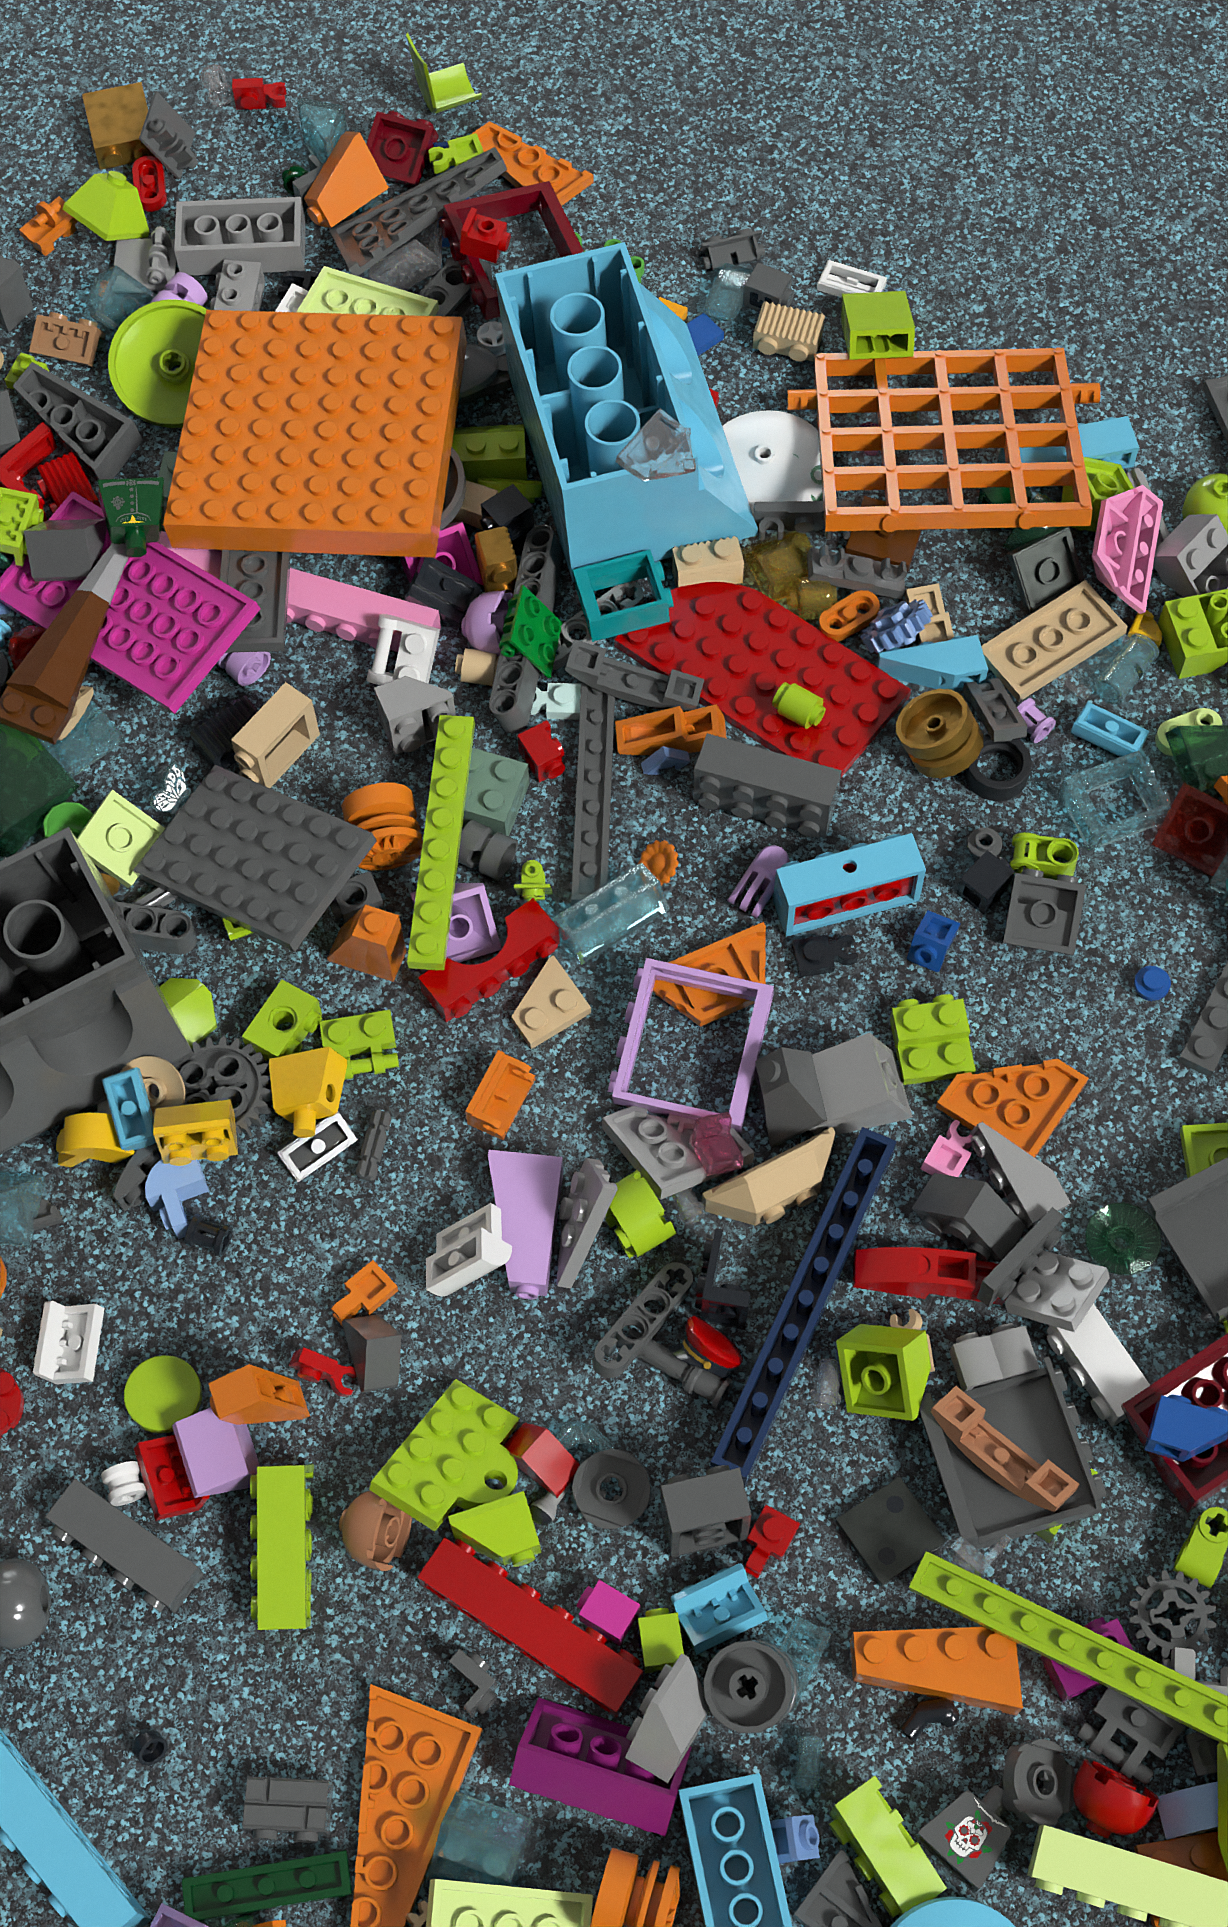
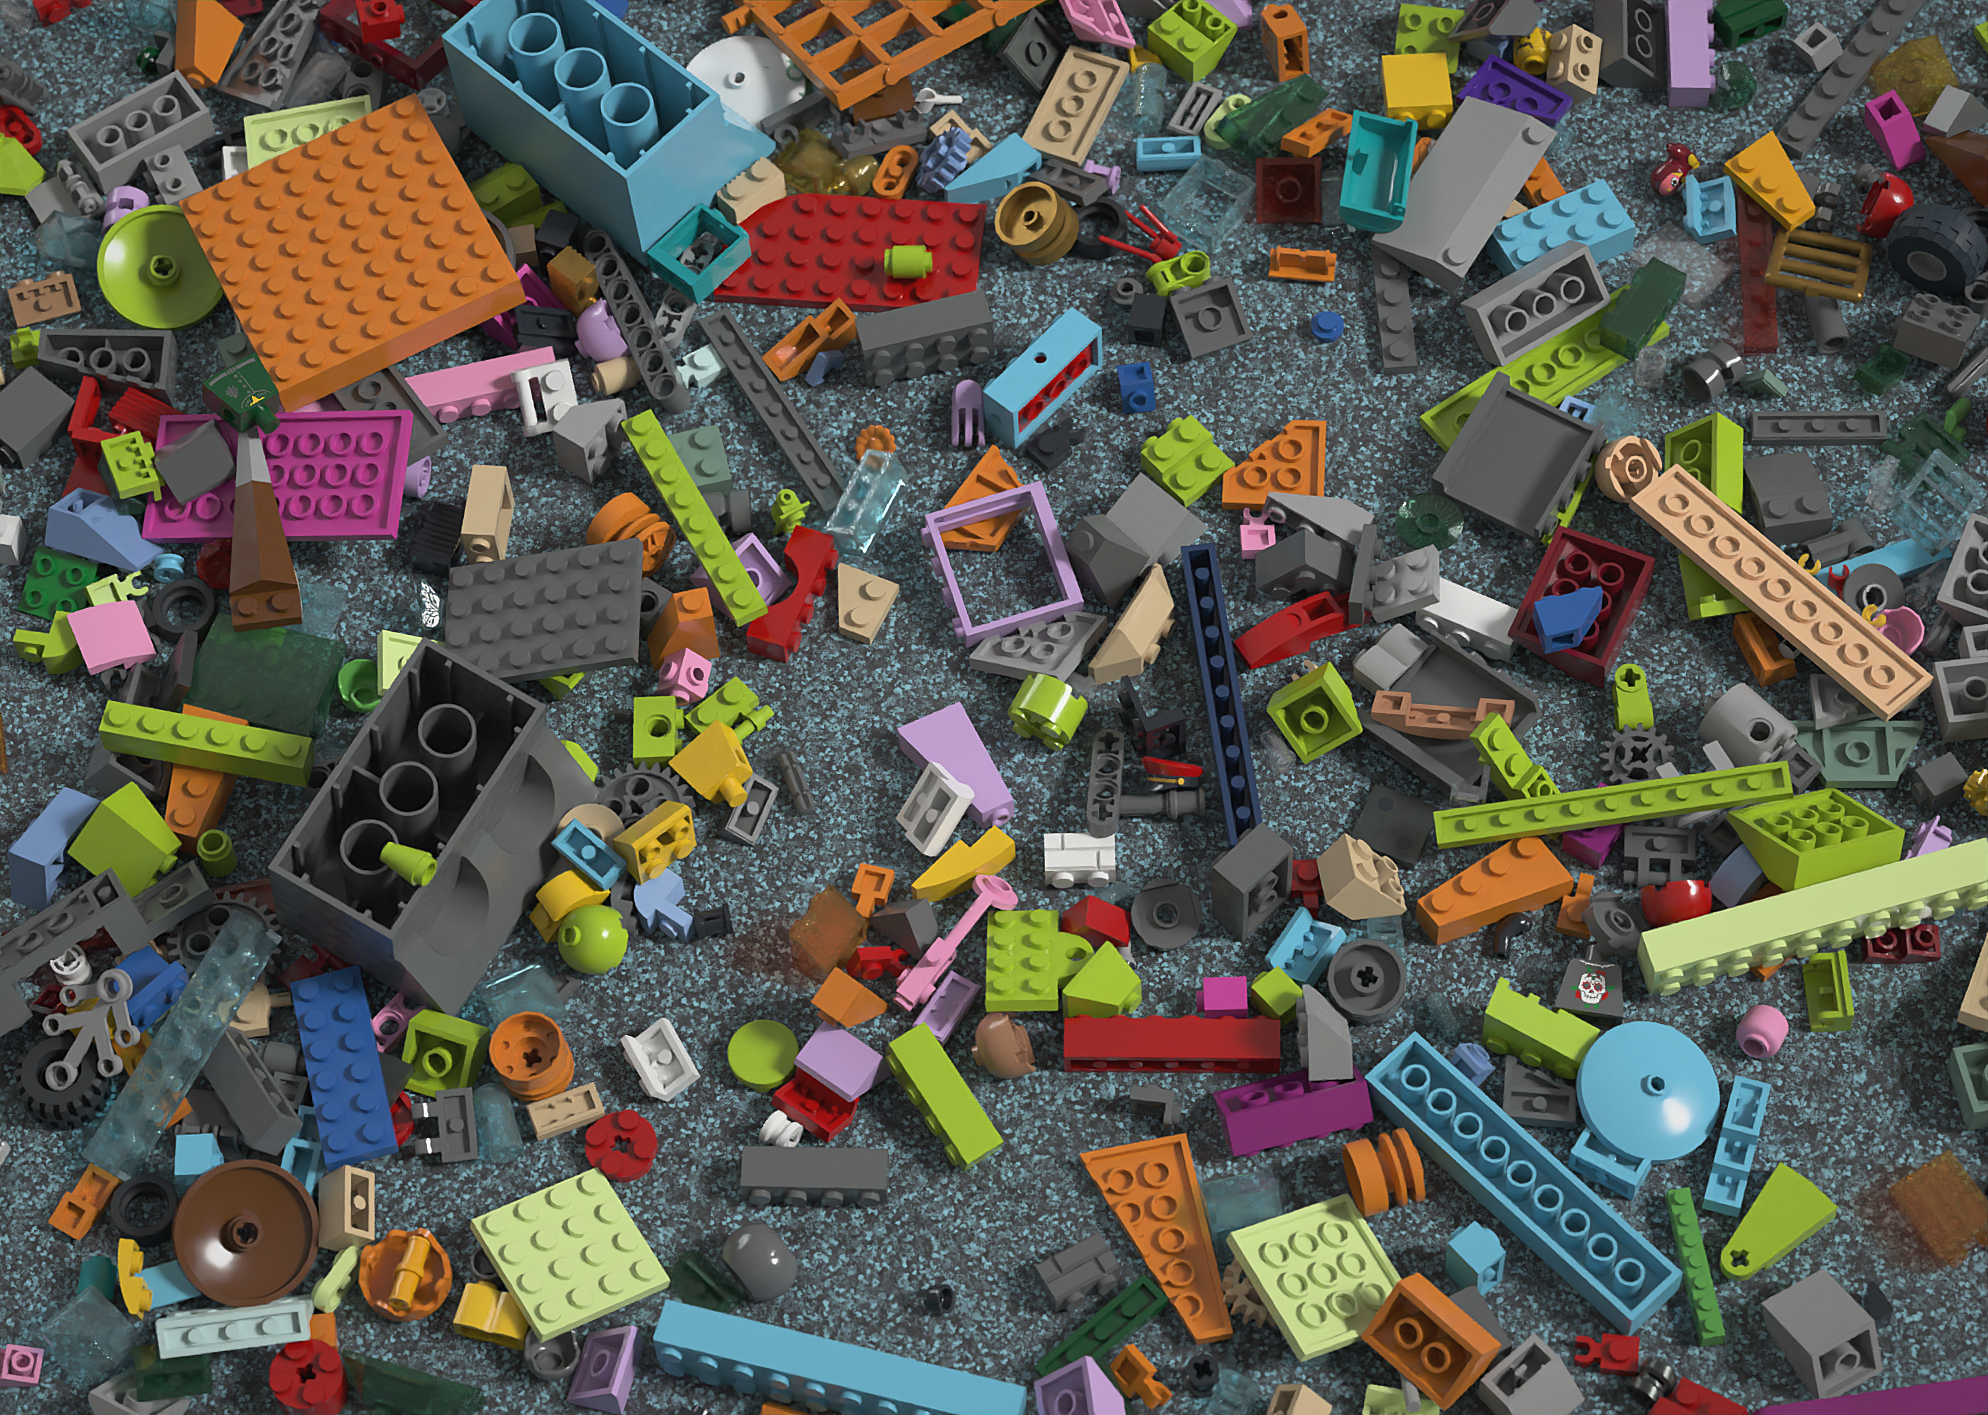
camera: 30 degrees left, 5 degrees down
(86, 1188) = (592, 939): none -> lime cylinder
(289, 1316) = (826, 935): none -> clear orange slope
(340, 985) = (684, 676): none -> bright pink brick
(353, 1453) = (948, 1006): none -> lavender plate
(461, 1323) = (961, 864): none -> yellow slope
(468, 1364) = (918, 984): none -> bright pink piece
(499, 1095) = (873, 689): orange hinge -> none
(531, 630) = (644, 319): green hinge -> none
(541, 752) = (718, 409): red brick -> none
(571, 1380) = (1079, 859): none -> white brick
(582, 1217) = (1008, 732): light grey wing -> none
(632, 682) = (758, 317): dark grey slope -> none
(658, 450) = (686, 104): clear slope -> none
(715, 1144) = (1073, 625): clear pink bracket -> none
(814, 1574) = (1360, 880): none -> tan slope
(926, 561) = (928, 98): none -> white hand
(1012, 1732) = (1570, 918): none -> orange plate
(1035, 1553) = (1509, 763): none -> lime slope
(1046, 818) = (1163, 244): none -> red plant
(1167, 909) = (1301, 265): none -> orange hinge
(1181, 708) = (1173, 125): none -> light grey tile

